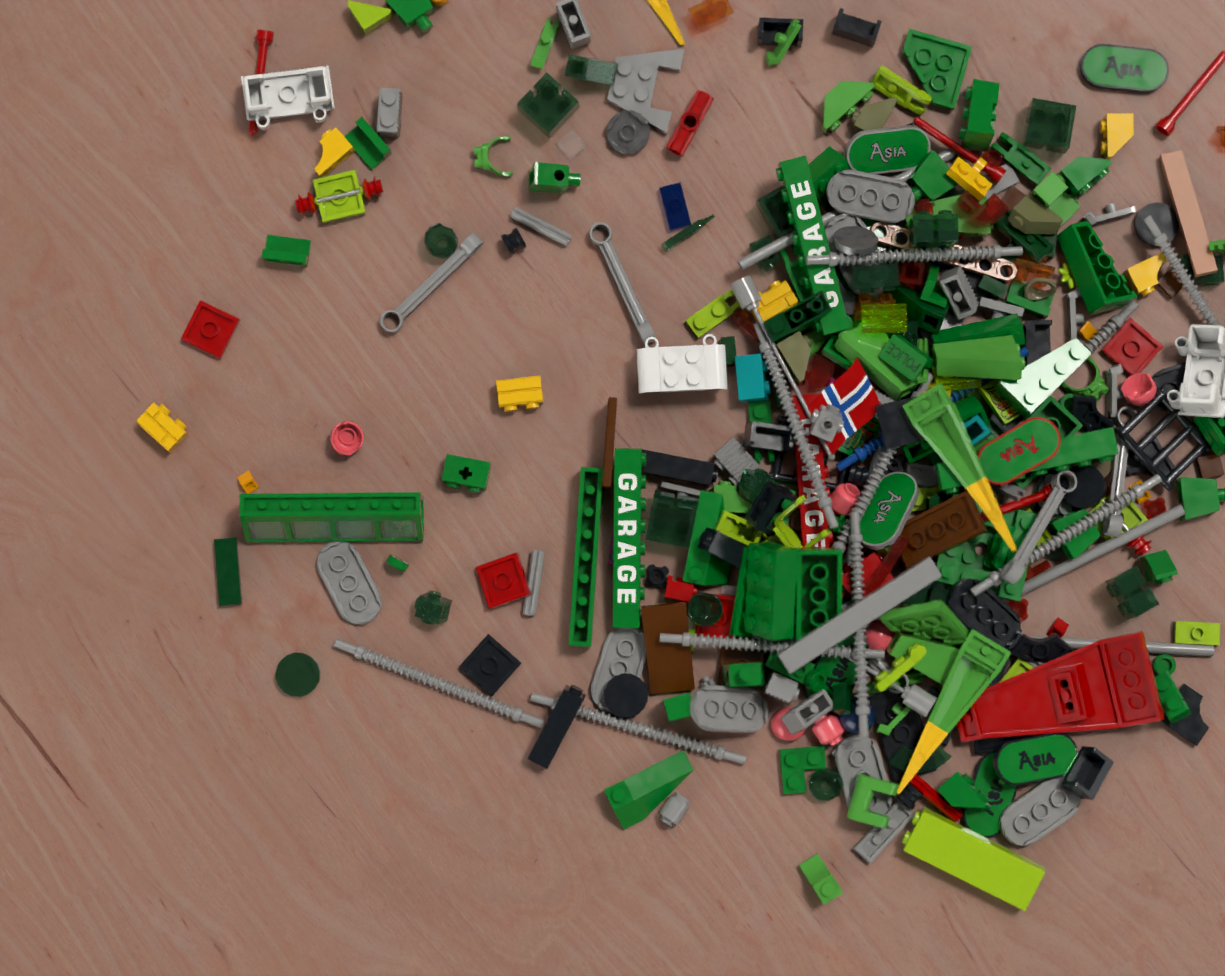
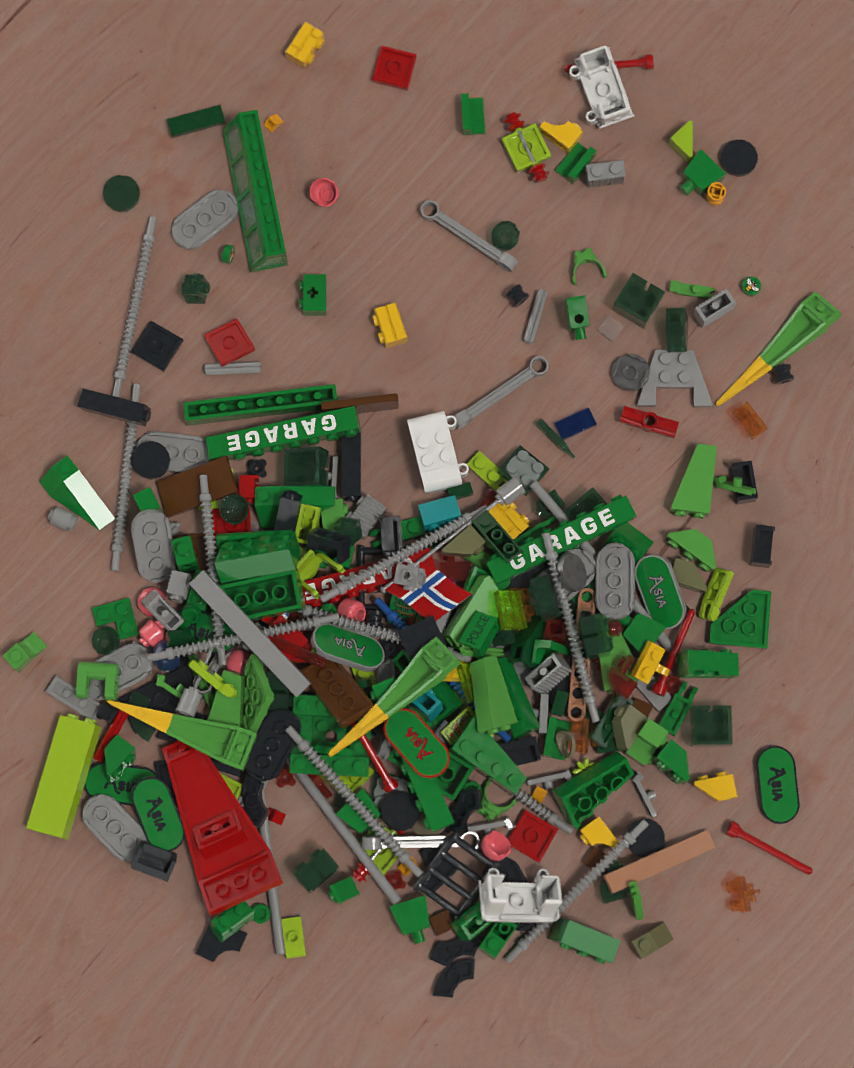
camera: 75 degrees right, 5 degrees down
(717, 274) = (524, 468): none -> light grey piece
(772, 85) = (696, 486): none -> bright green slope
(1015, 567) = (315, 758): light grey piece -> none

